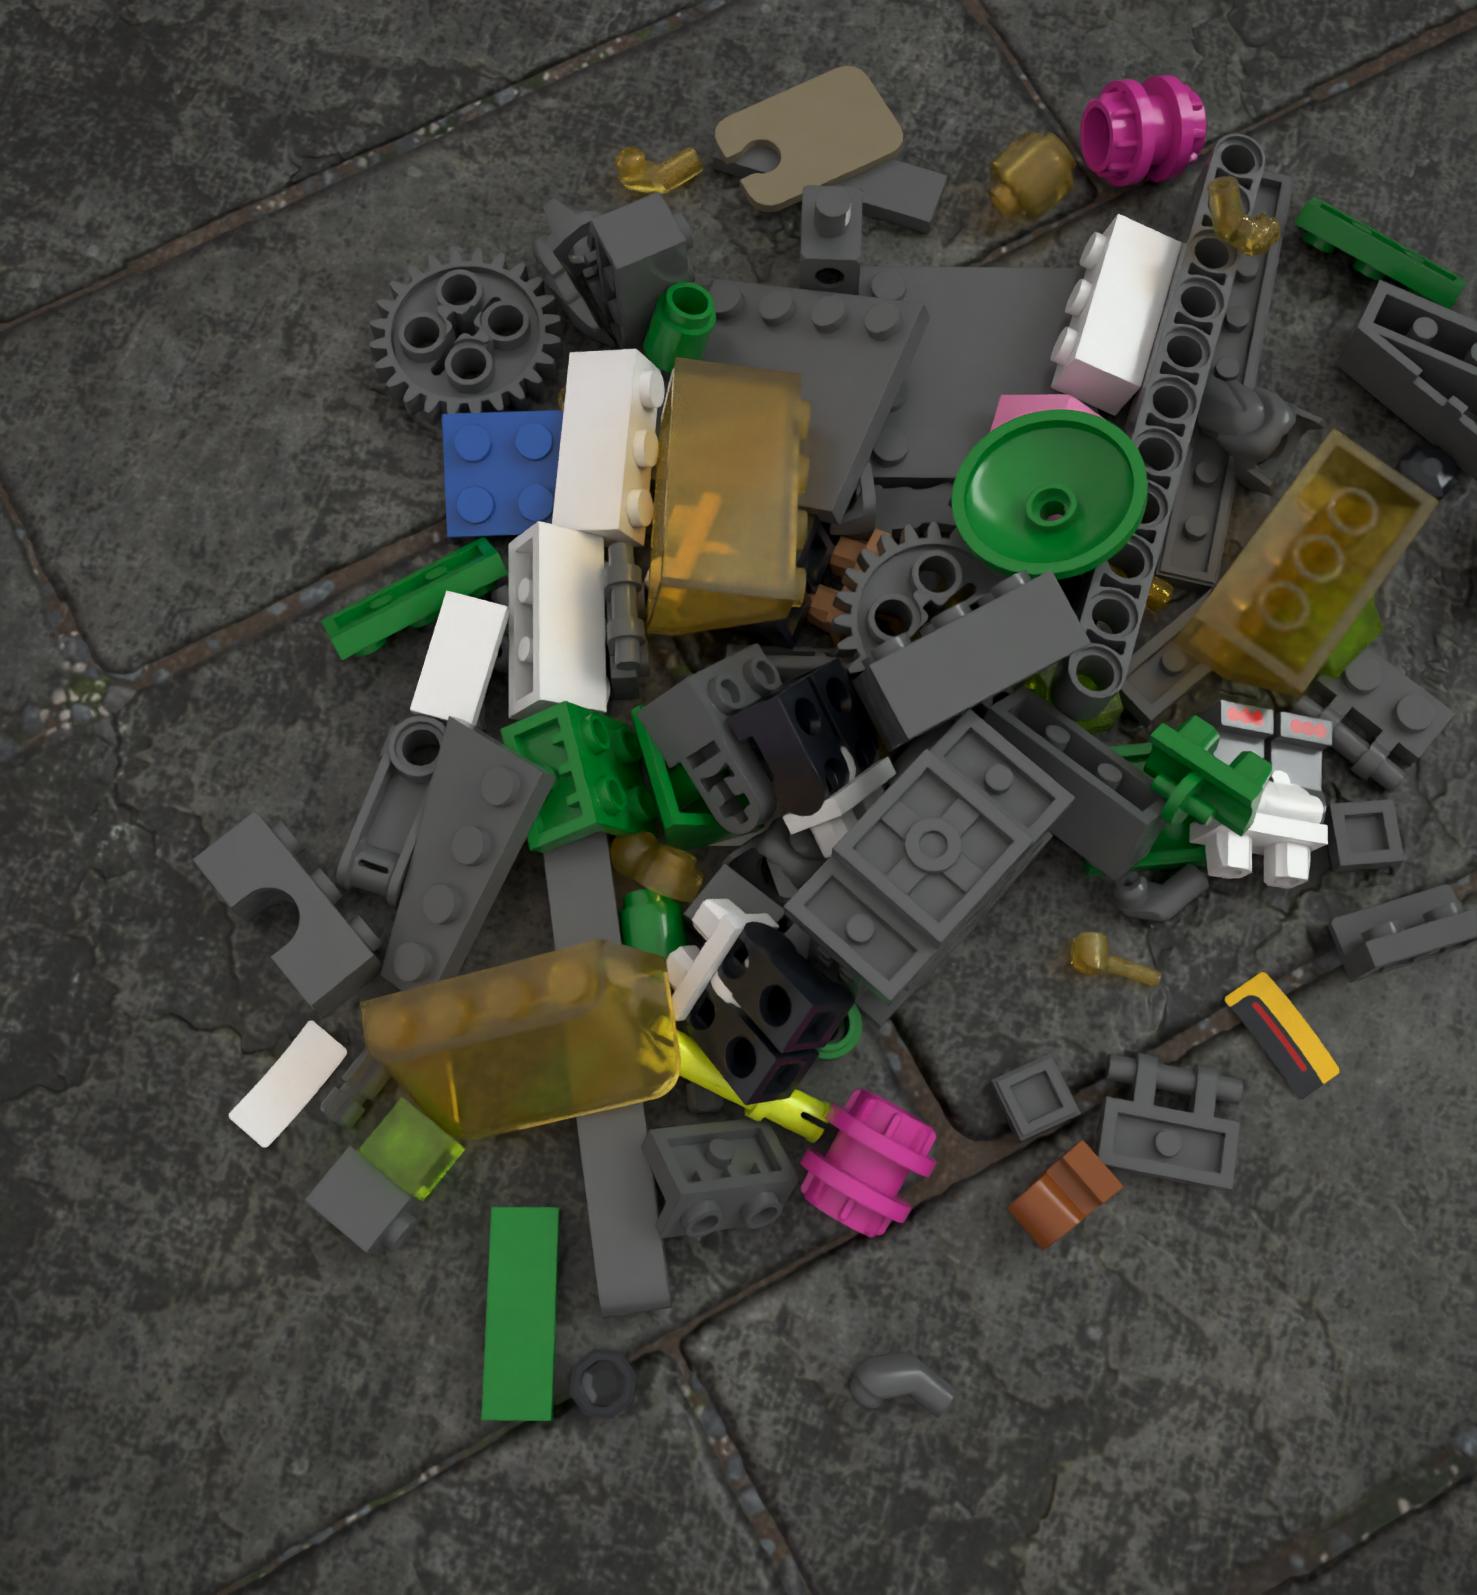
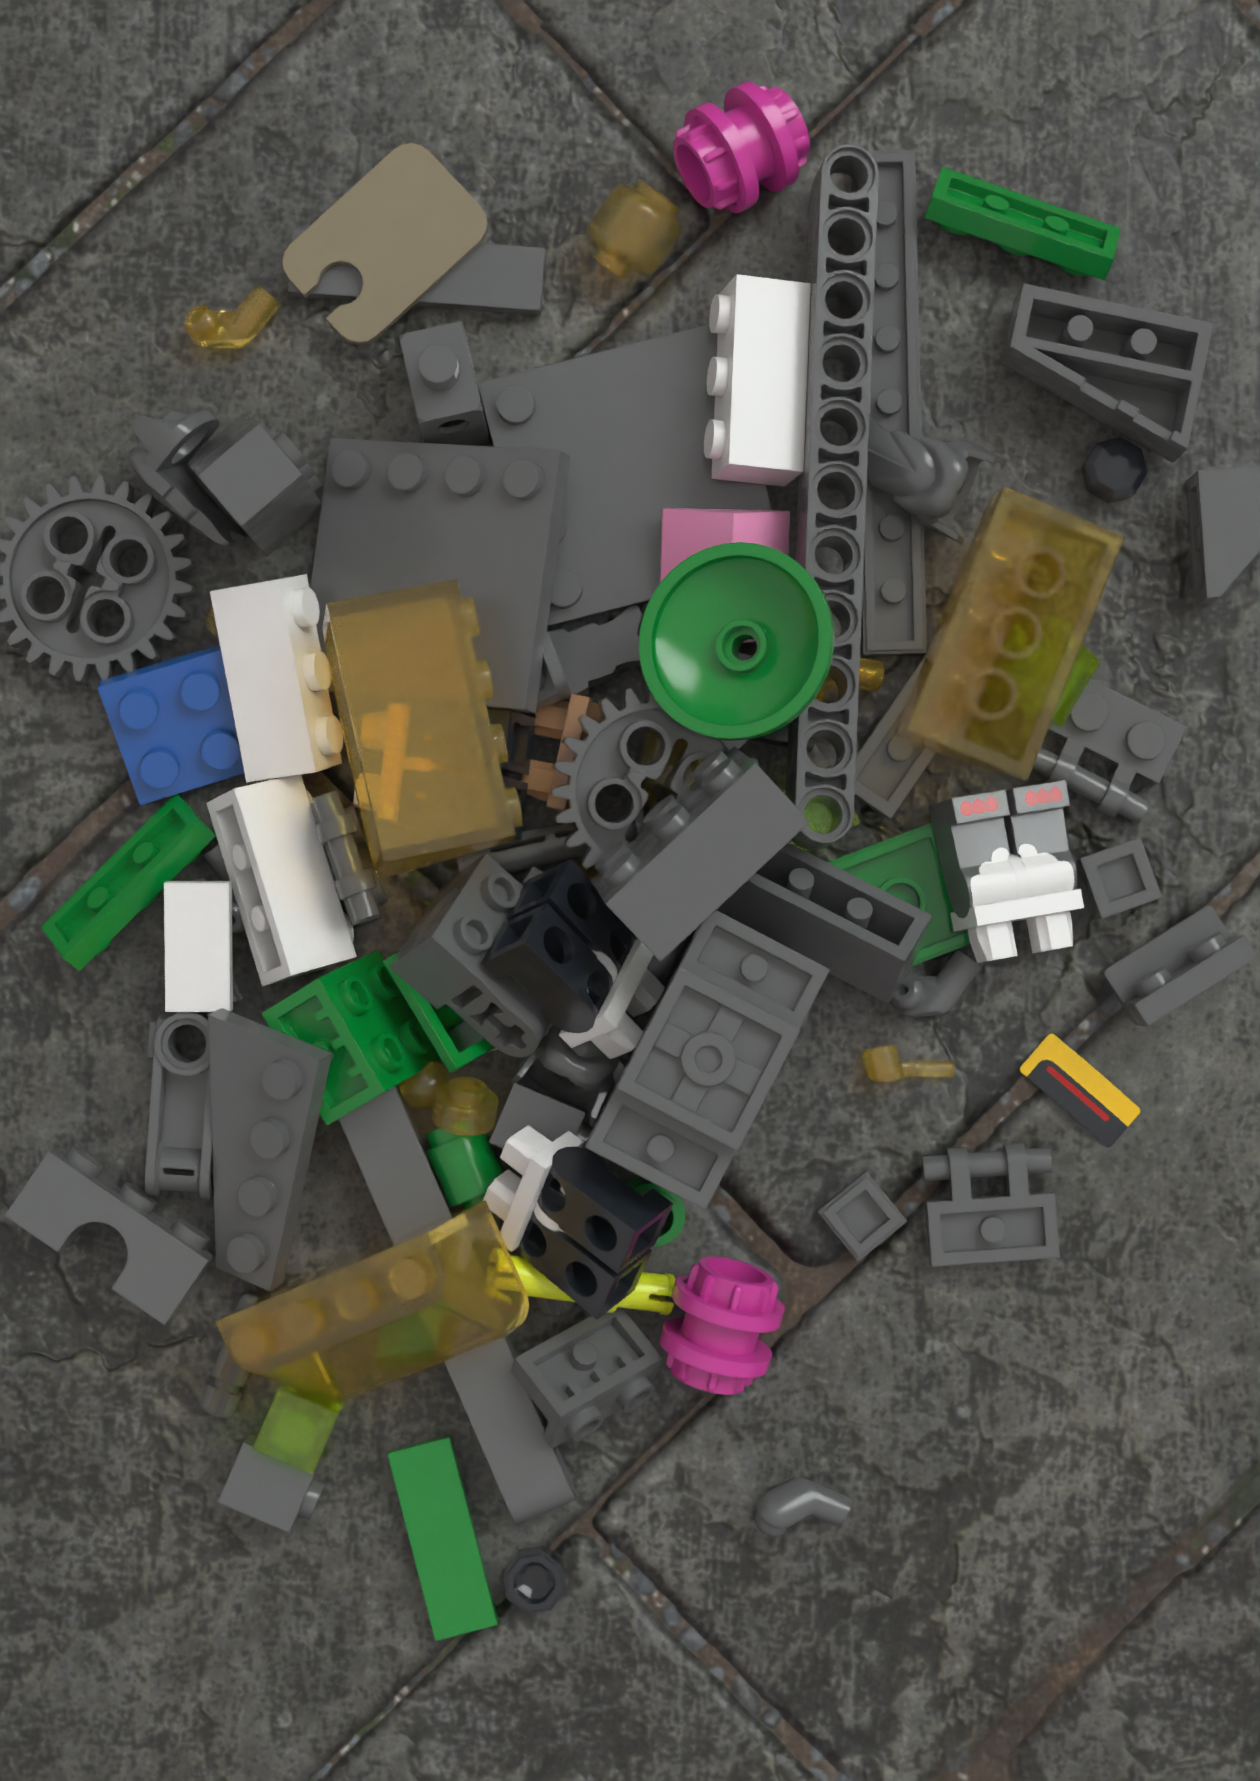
camera: 15 degrees left, 15 degrees up
(288, 1084) = (162, 1389): white sticker -> none
(680, 325) = (315, 532): green brick -> none
(1064, 1195) = (906, 1304): dark orange leg -> none
(1201, 783) = (926, 878): green hips -> none
(1234, 226) = (858, 272): clear yellow arm -> none

